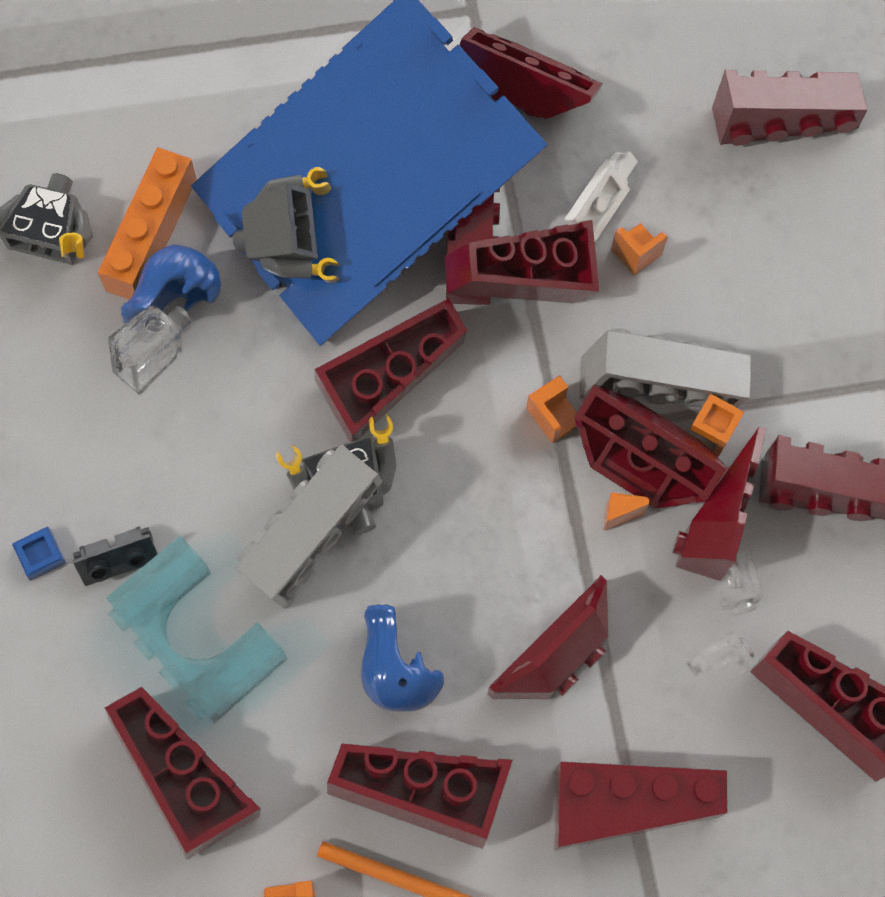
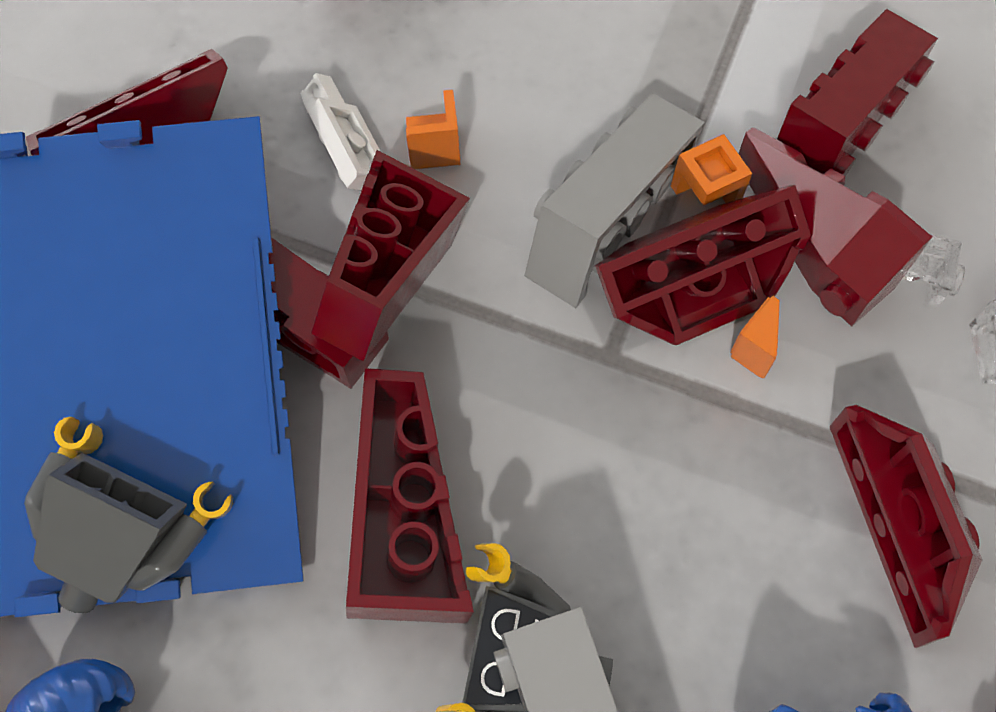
camera: 55 degrees left, 5 degrees down
(552, 409) = (580, 344): orange panel -> none

